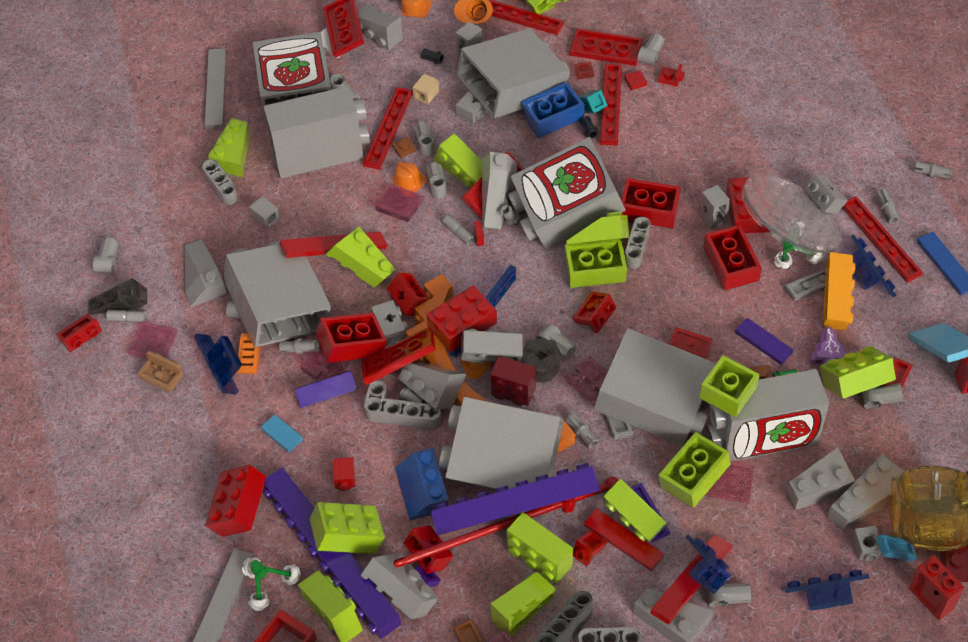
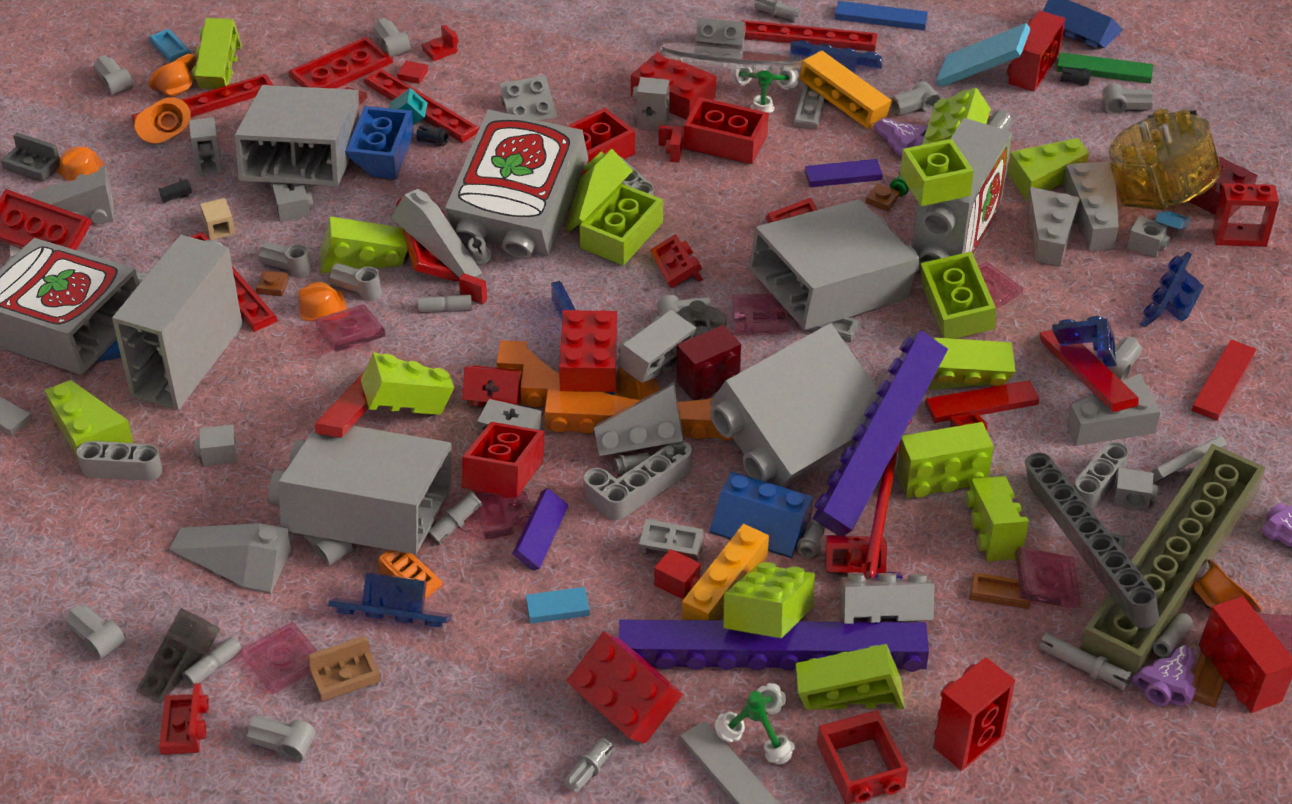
camera: 55 degrees left, 10 degrees down
(101, 380) = (287, 739): none -> light grey piece
(182, 520) = (588, 765): none -> light grey axle
(364, 454) = (668, 536): none -> light grey hinge
(381, 494) = (737, 558): none -> light orange brick
(398, 355) = (576, 432): red tile -> none
(424, 520) = (809, 544): none -> light grey pin
(663, 148) = (528, 98): none -> light grey hinge
(696, 241) = (673, 140): none -> red bracket
(871, 441) = (1044, 164): none -> lime wedge
(879, 335) = (919, 97): none -> light grey piece

